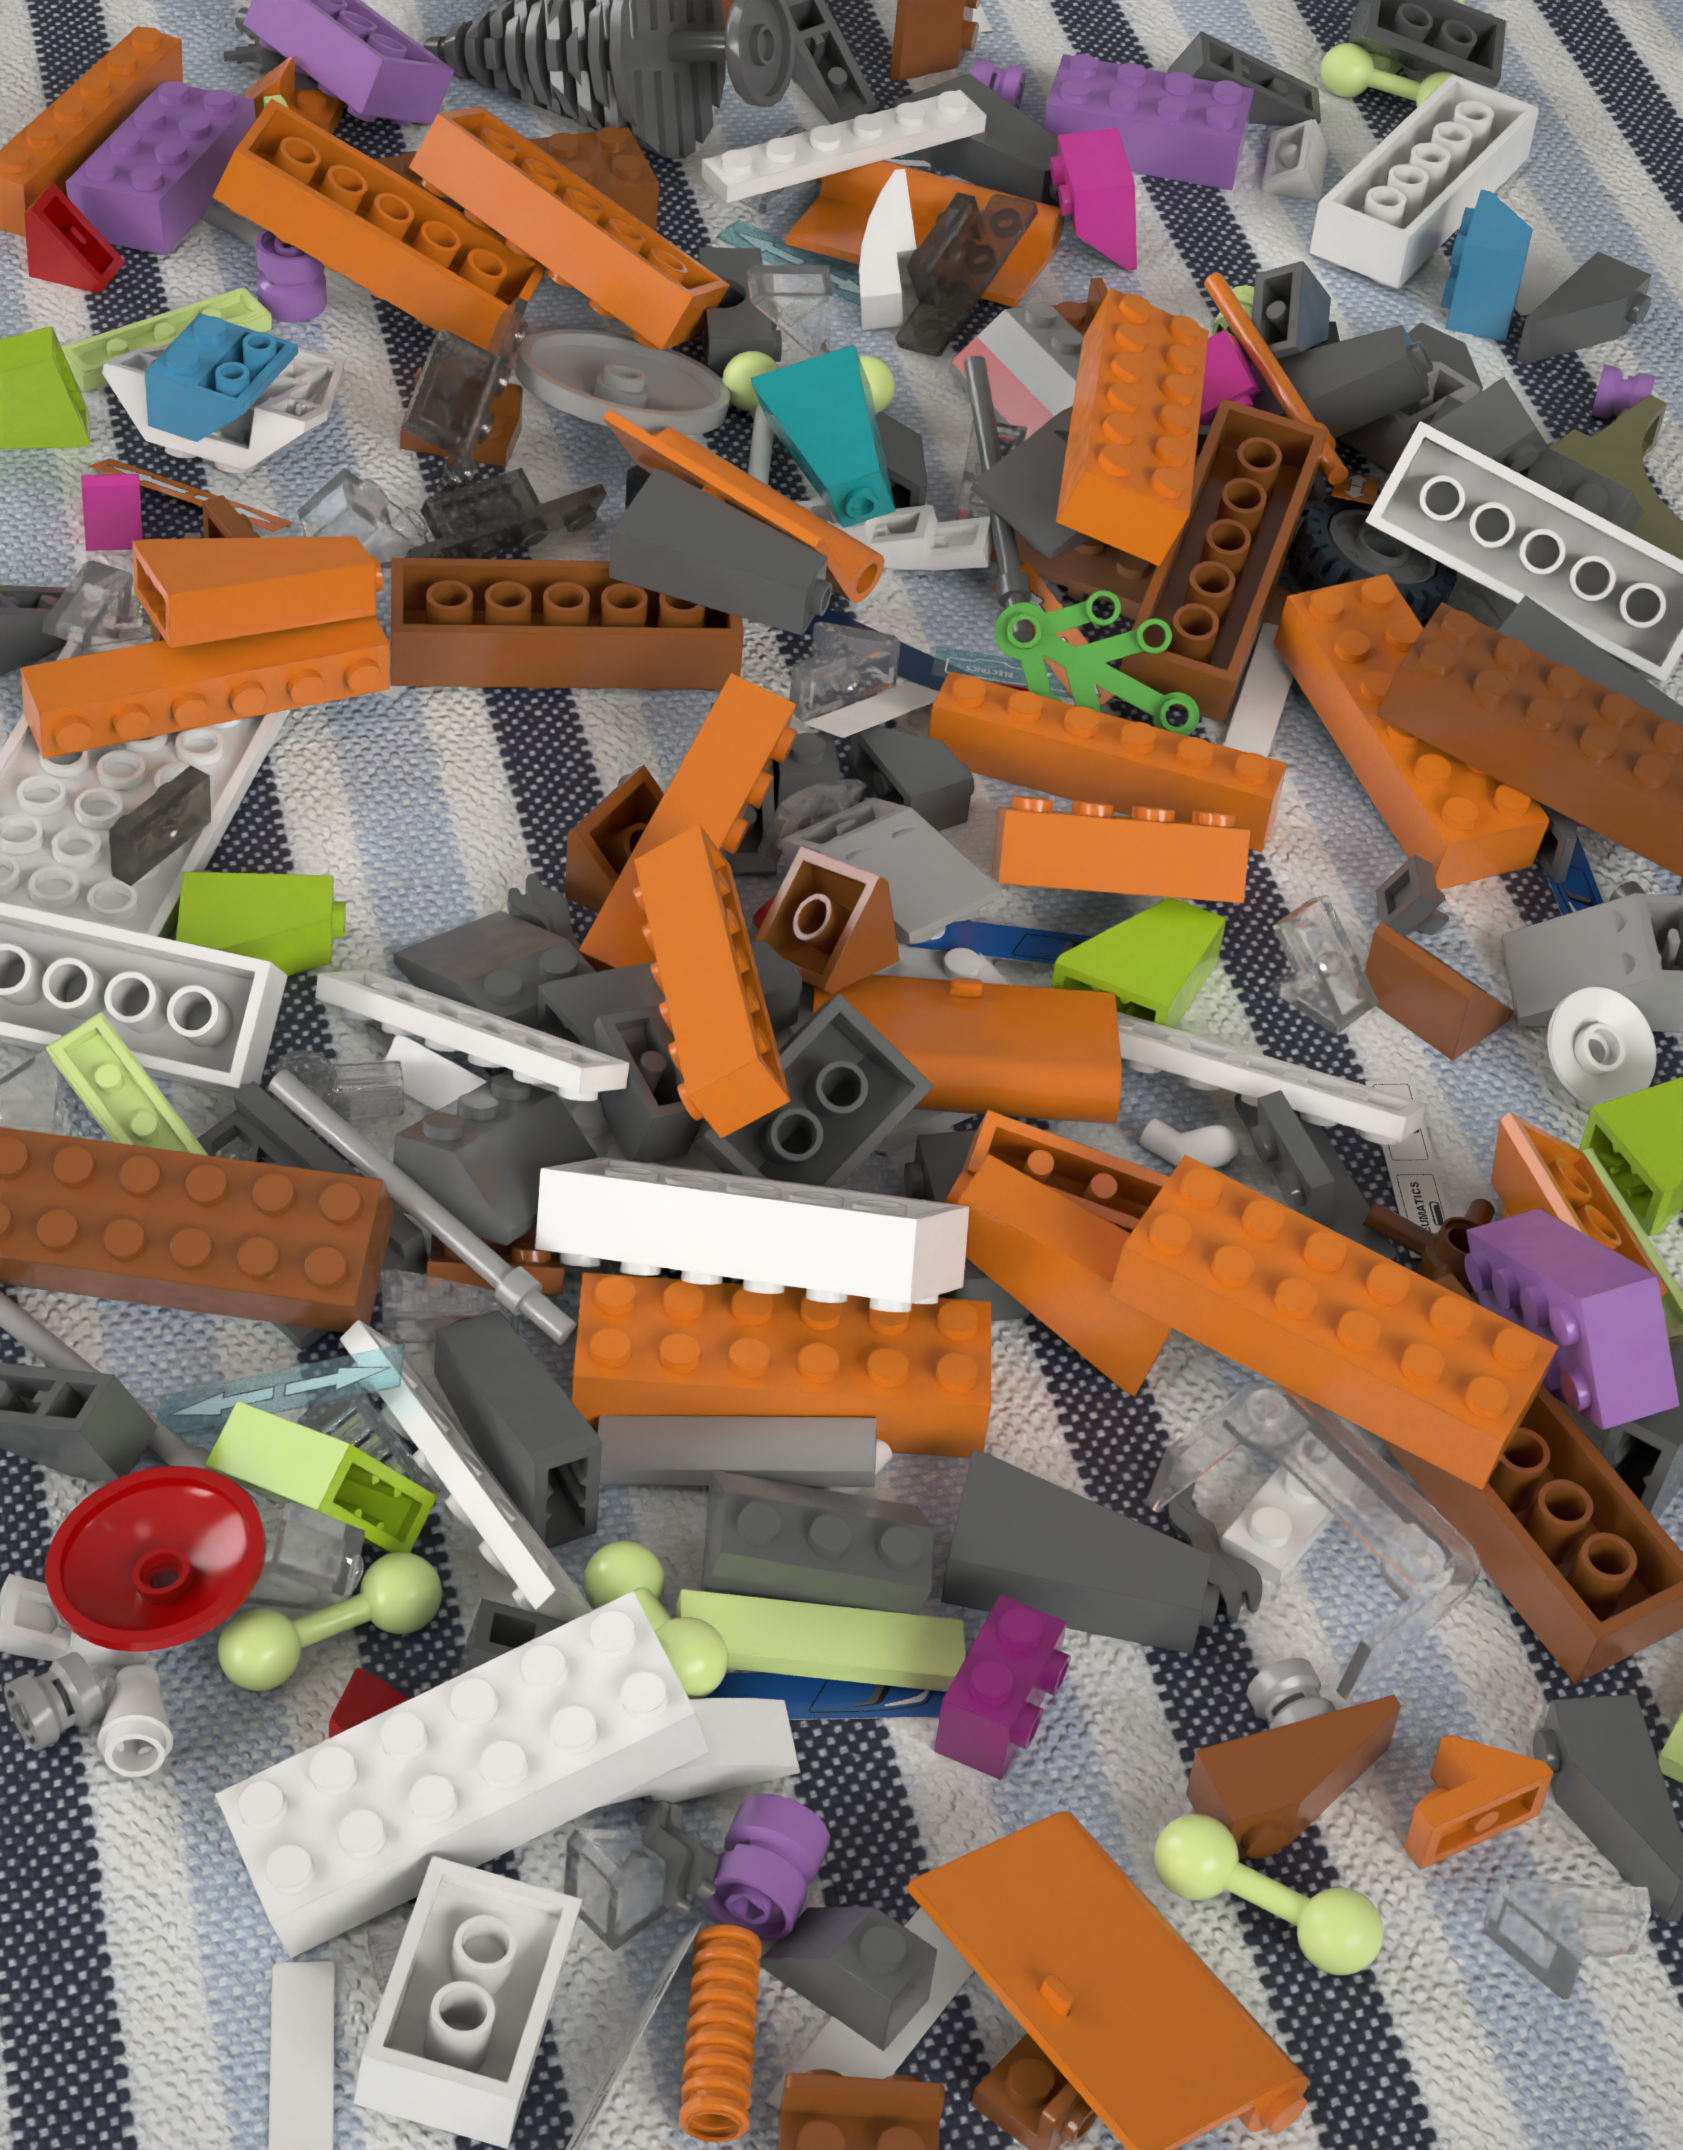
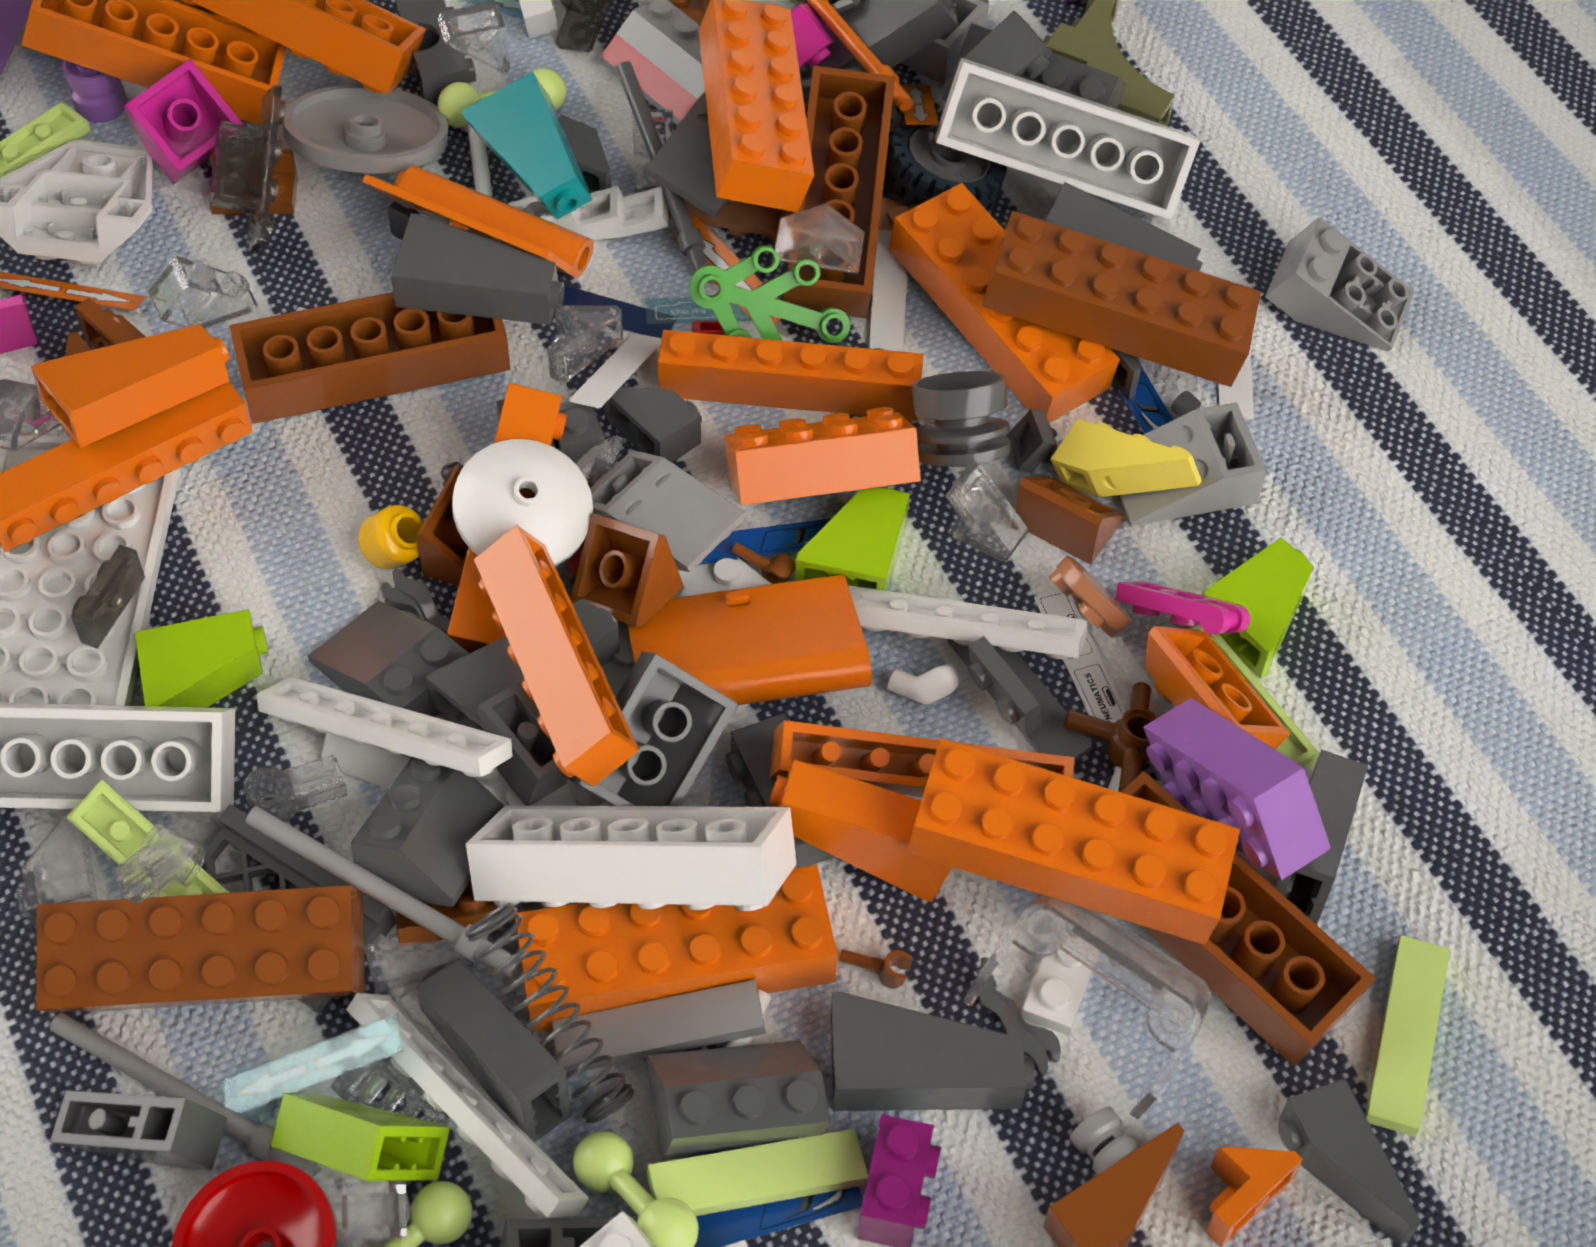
camera: 10 degrees left, 10 degrees up
(151, 1112) = (161, 861): none -> clear piece
(212, 376) = (57, 196): dark azure slope -> none
(386, 325) = (179, 120): none -> dark pink slope
(498, 515) = (293, 263): clear smoke bracket -> none
(534, 836) = (390, 537): none -> yellow head
(552, 1251) = (621, 1093): none -> dark grey piece
(753, 832) = (490, 504): none -> white dish
(1033, 973) = (774, 571): none -> dark orange hand
(1058, 1456) = (881, 966): none -> dark orange hand
(1186, 597) = (822, 237): none -> clear slope
(1317, 843) = (962, 424): none -> dark grey wheel
(1438, 1085) = (1094, 599): none -> nougat tile
(1516, 939) = (1116, 463): none -> light yellow slope
(1564, 1119) = (1185, 607): none -> dark pink plate
(1616, 1035) = (1208, 532): white dish -> none

